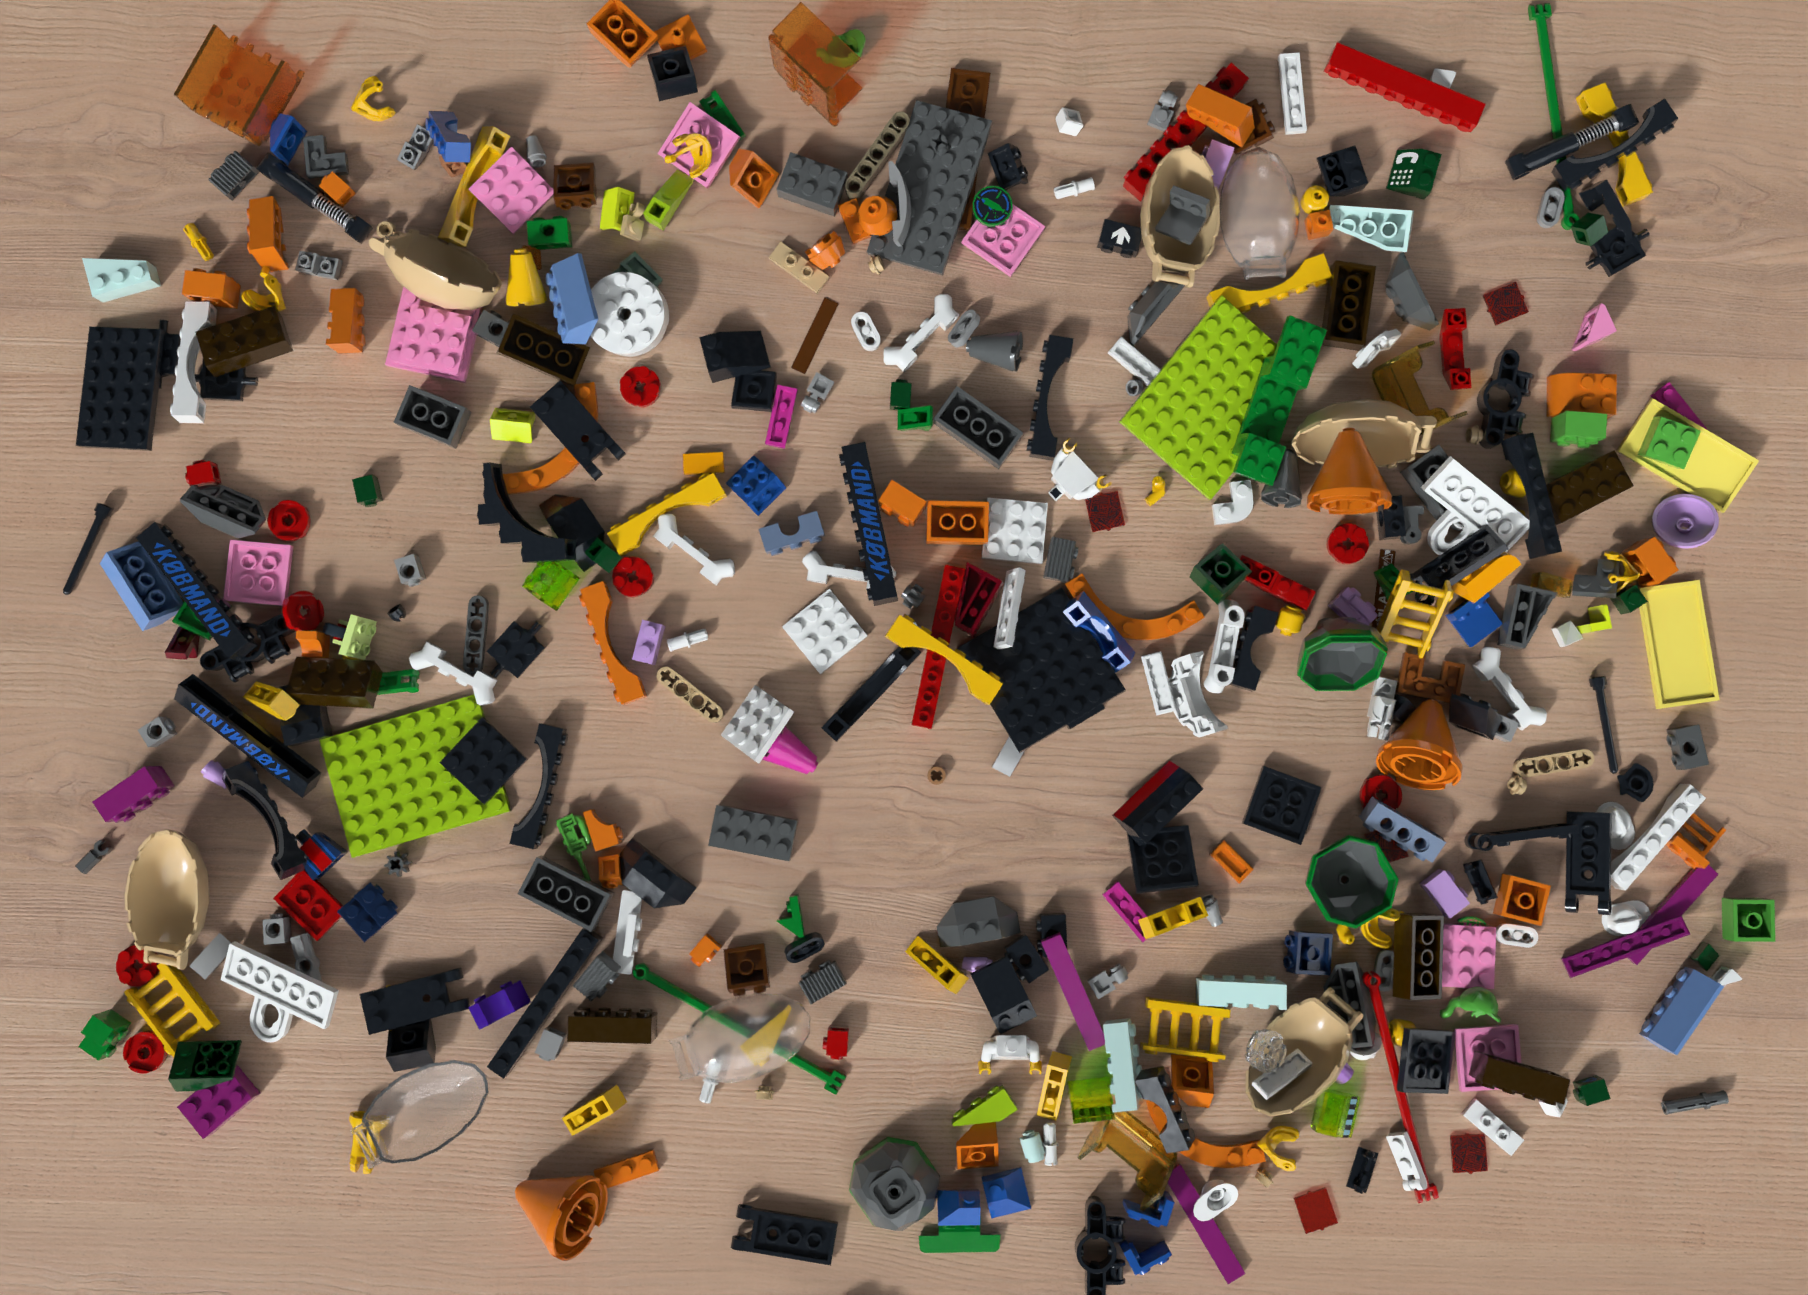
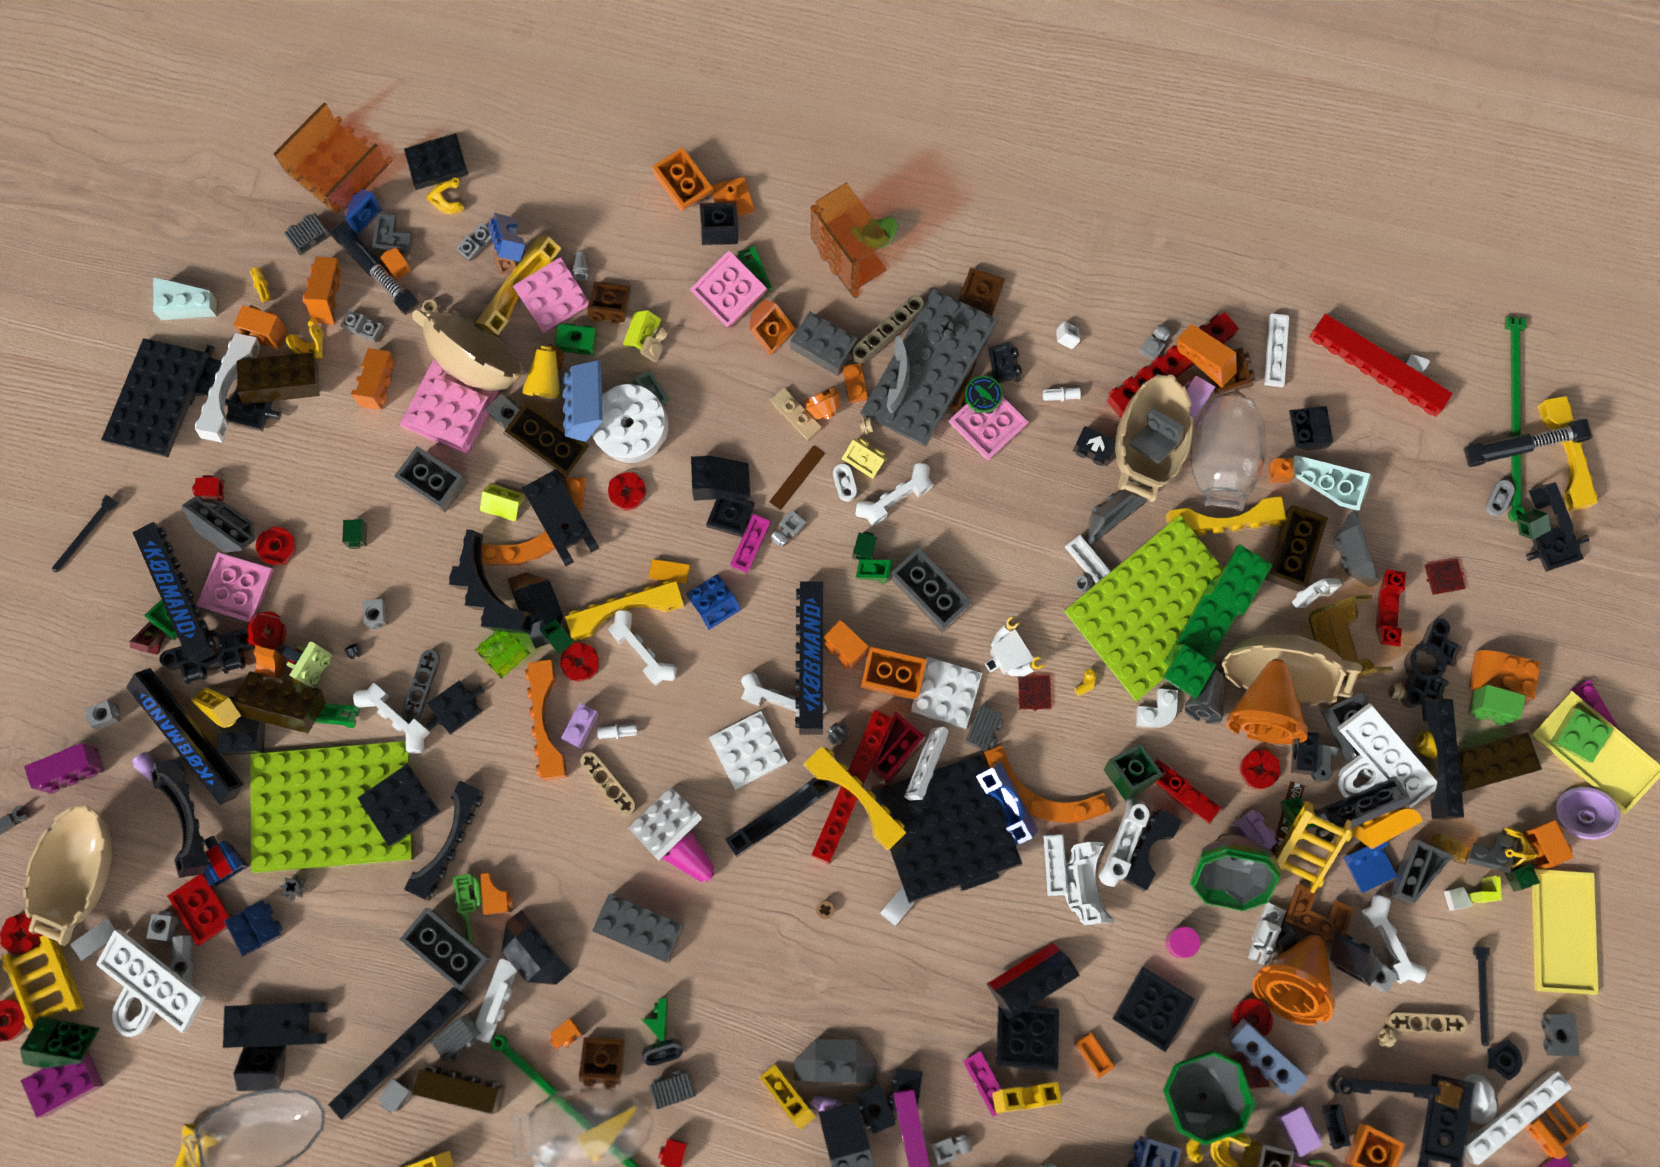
camera: 10 degrees right, 10 degrees down
(141, 585) = (125, 577): medium blue slope -> none
(351, 65) = (435, 161): none -> black plate
(502, 1003) = (356, 1045): dark purple brick -> none
(610, 871) = (492, 937): orange bracket -> none
(667, 199) = (689, 331): lime slope -> none
(701, 162) = (727, 304): yellow helmet -> none
(775, 541) = (720, 656): sand blue arch -> none
(877, 215) = (876, 381): orange cone -> none
(881, 300) = (864, 457): none -> light yellow bracket
(964, 328) = (935, 498): light grey plate -> none
(997, 349) = (963, 522): dark grey cone -> none
(1043, 442) = (1018, 537): black arch -> none
(1212, 909) = (1068, 1101): light grey cone -> none
(1290, 620) = (1192, 830): yellow head -> none
(1299, 734) = (1182, 942): none -> dark pink piece
(1314, 199) = (1281, 446): yellow head -> none
(1413, 172) = (1377, 441): dark green slope -> none
(1574, 170) = (1526, 469): black arch -> none
(1587, 829) = (1449, 1095): none -> clear orange slope
(1594, 327) = (1525, 615): bright pink slope -> none

